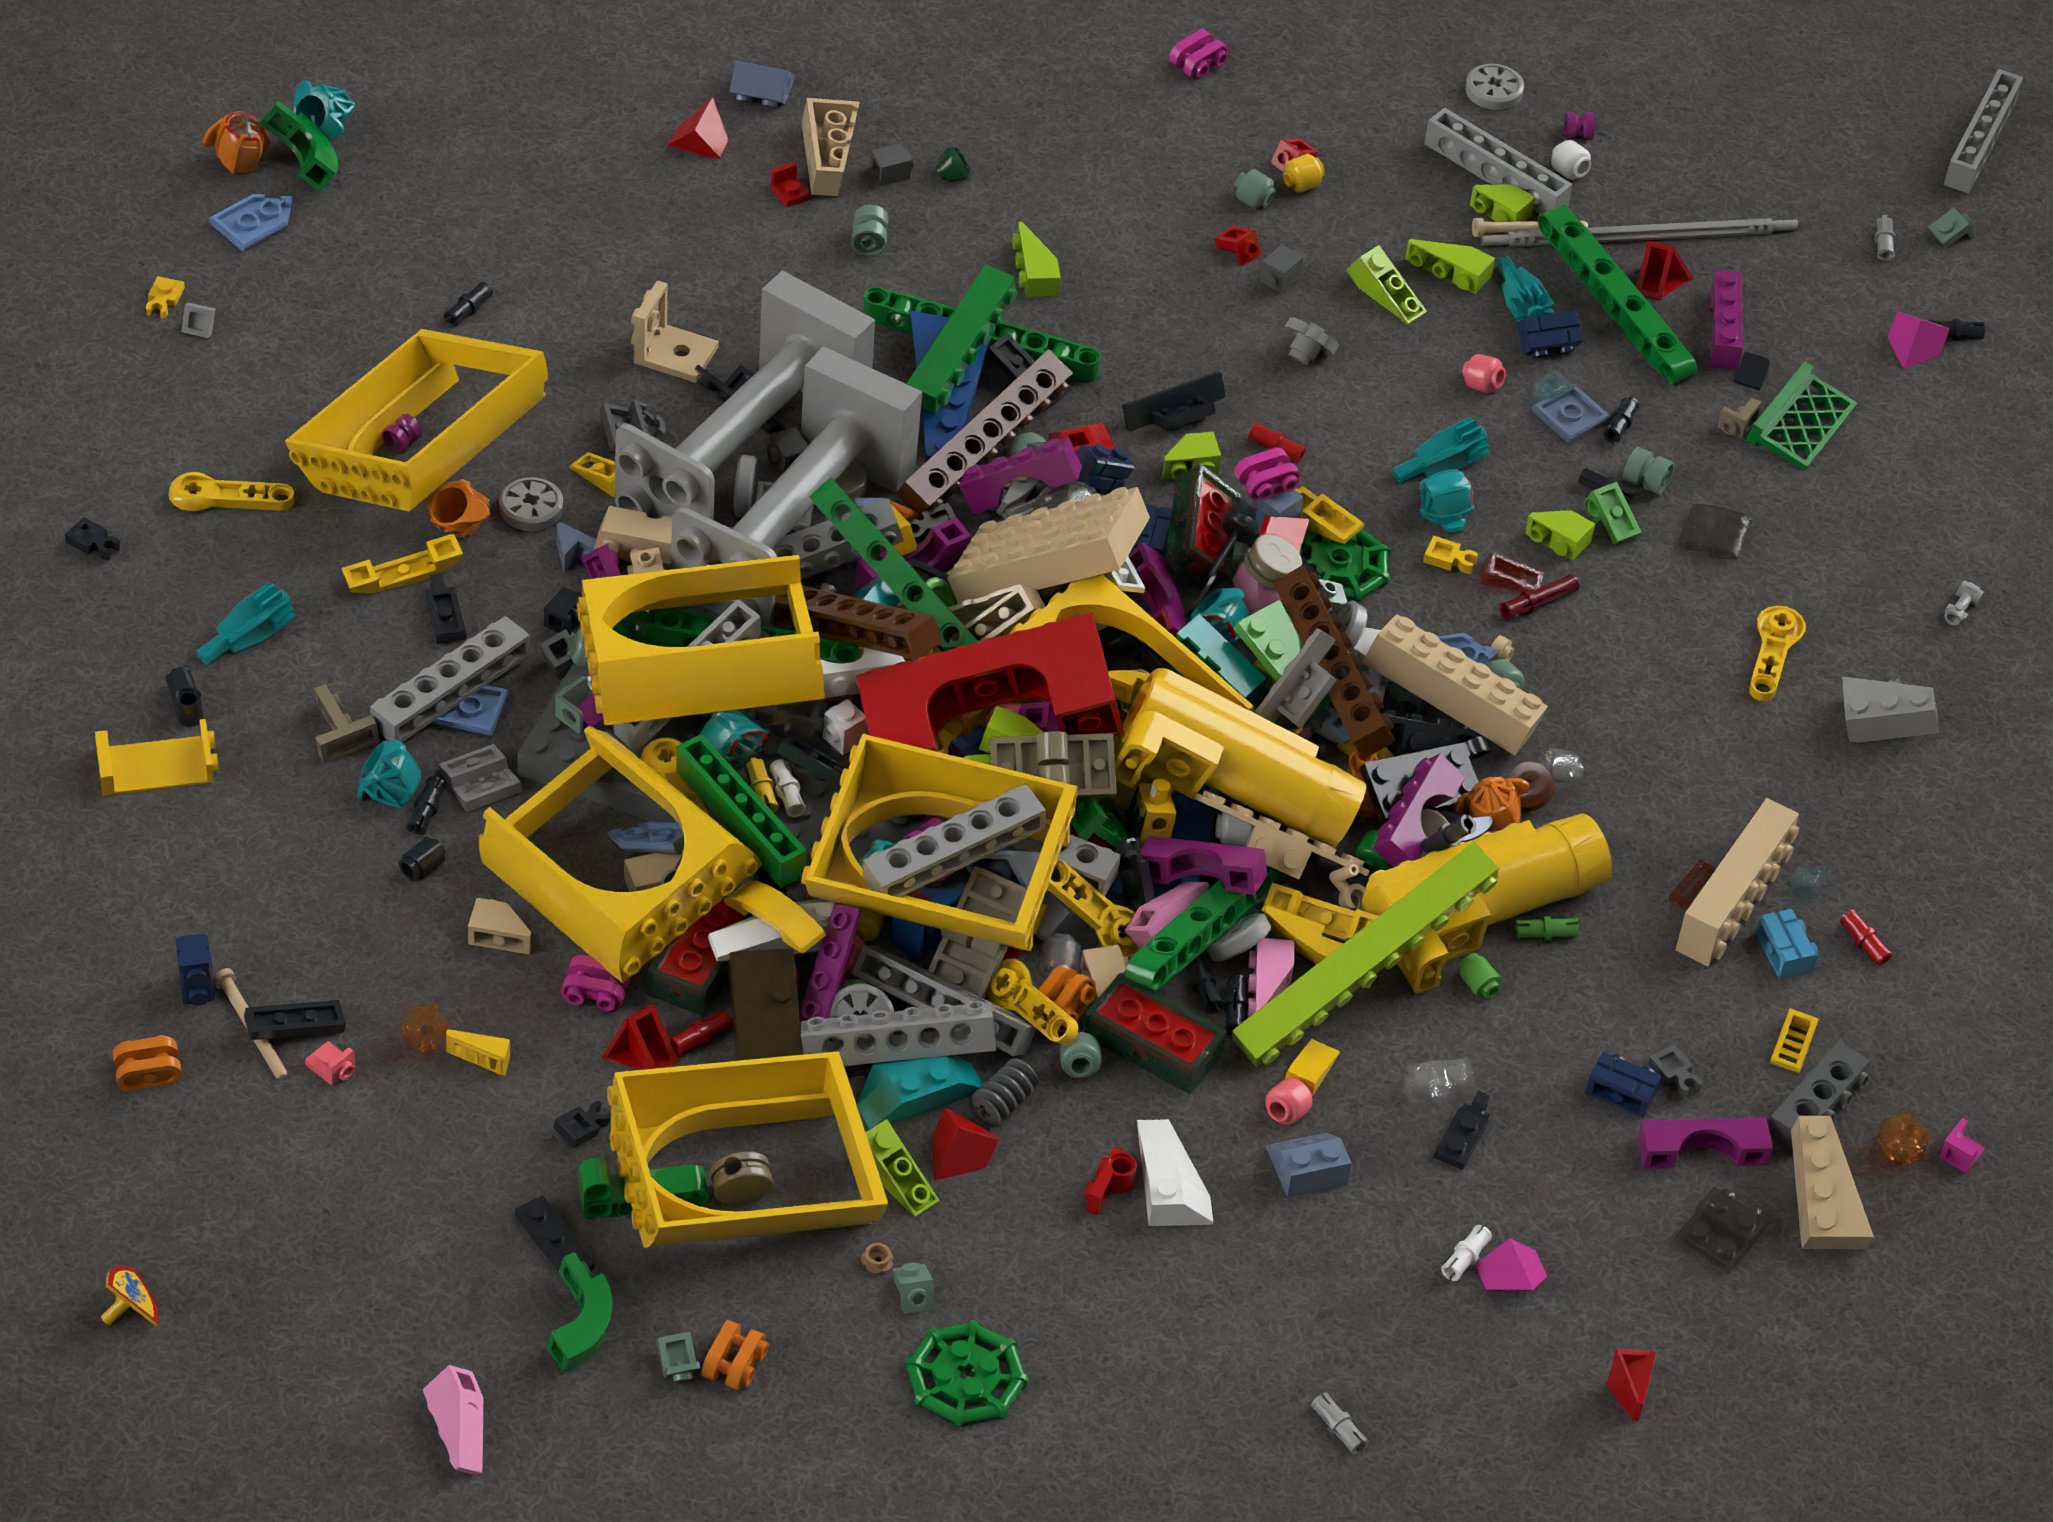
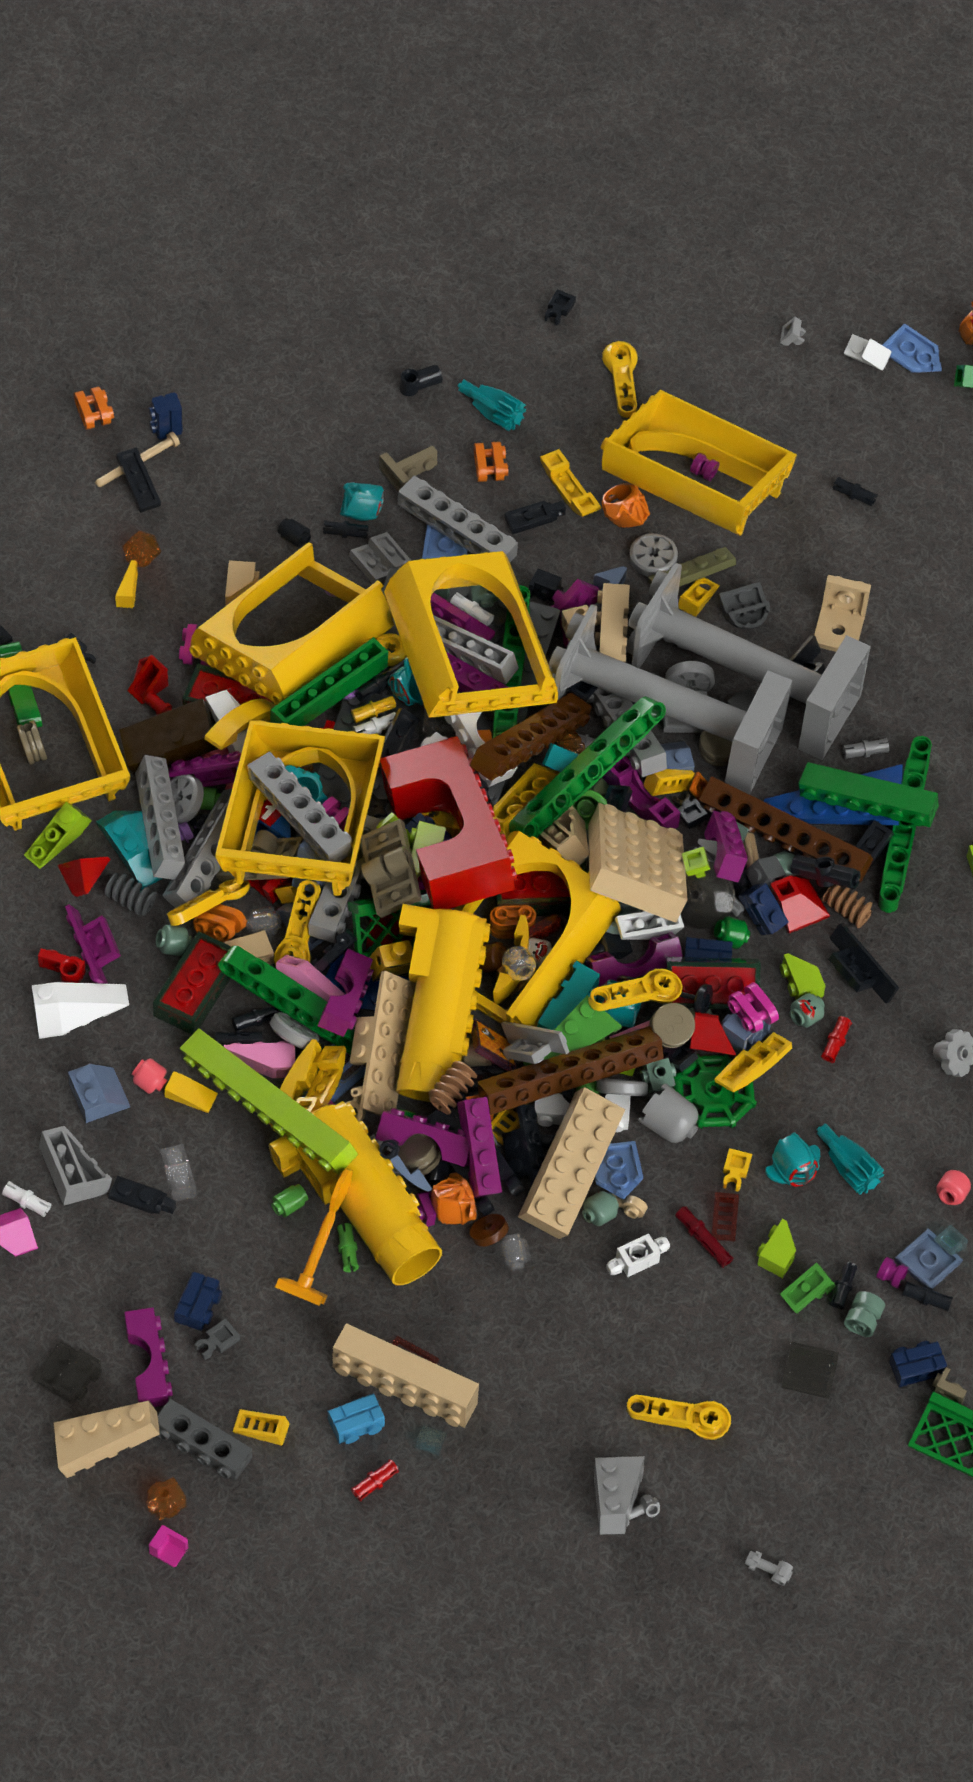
camera: 85 degrees right, 10 degrees up
(156, 763) = (358, 371): yellow panel -> none
(164, 293) = (818, 311): yellow plate -> none
(247, 257) = (867, 352): none -> white slope
(332, 1063) = (109, 508): coral bracket -> none
(345, 641) = (497, 453): none -> orange brick
(563, 470) = (704, 566): none -> olive plate
(1053, 492) = (696, 862): none -> lime tile
(1061, 398) = (825, 871): none -> black piece
(1072, 1139) = (96, 942): none -> magenta bracket
(1091, 399) = (848, 904): none -> medium nougat piece
(1192, 669) = (519, 963): none -> clear head
(1229, 564) = (638, 990): none -> yellow beam
(1233, 452) = (807, 1010): none -> sand green head
(1366, 764) = (451, 1085): none -> medium nougat piece
(1384, 593) = (670, 1115): none -> light grey cylinder
(1417, 740) = (477, 1125): none -> magenta arch
(1427, 1195) = (71, 1168): none -> light grey wedge
(1522, 885) = (303, 1287): none -> light orange piece
(1566, 656) = (643, 1246): none -> white piece
(1595, 438) = (892, 1272): none -> magenta wheel
(1708, 438) = (917, 1363): none -> dark blue brick

